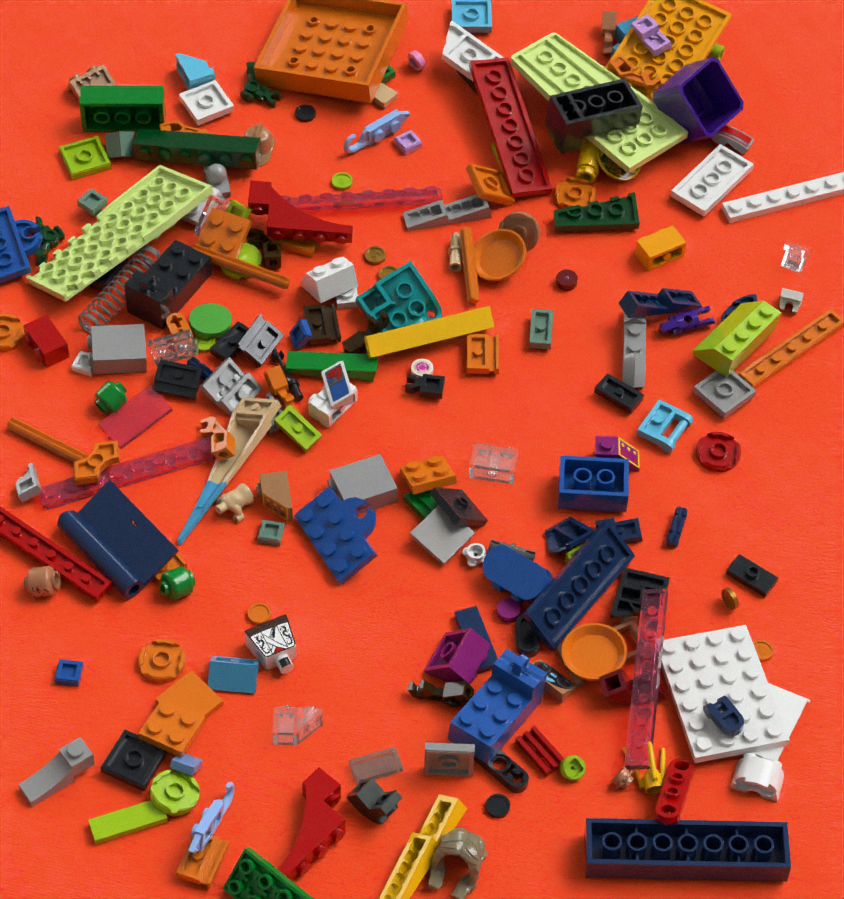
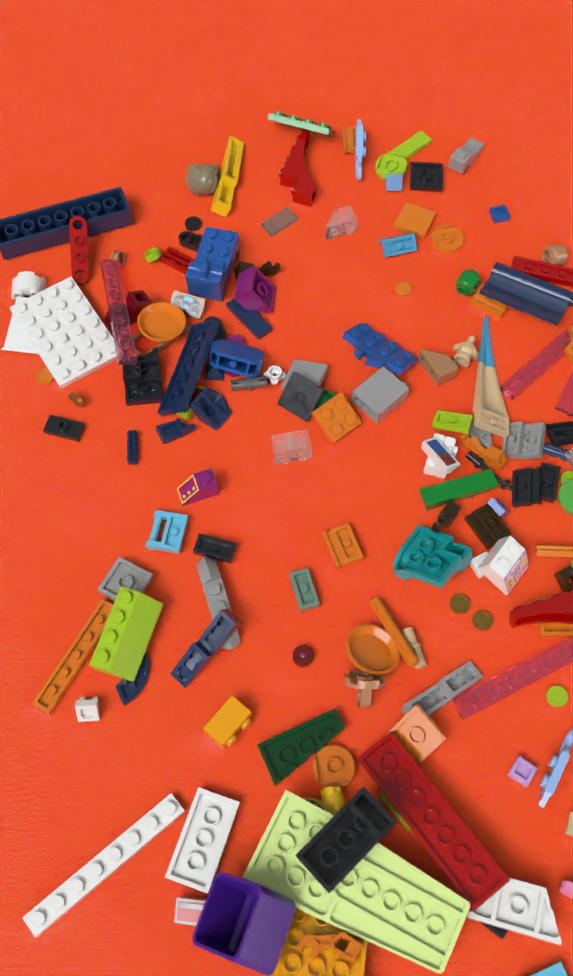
camera: 160 degrees right, 10 degrees up
(172, 727) = (414, 194): orange plate -> none
(221, 440) = (501, 389): orange piece -> none
(271, 532) = (427, 342): sand green tile -> none
(273, 644) = (381, 265): torso -> none
(373, 801) = (268, 195): pearl dark grey brick -> none
(421, 367) = (385, 516): tile -> none
(429, 331) = (393, 542): yellow slope -> none
(429, 386) = (372, 499): black plate -> none
(449, 759) = (233, 220): tile -> none
(593, 483) = (206, 449): blue brick -> none
(652, 779) = (96, 264): yellow plant -> none
(678, 325) = (178, 645): dark purple hinge -> none
(718, 452) = (116, 527): red tile -> none
(730, 721) = (51, 295): dark blue plate -> none
(795, 256) = (93, 768): clear slope -> none

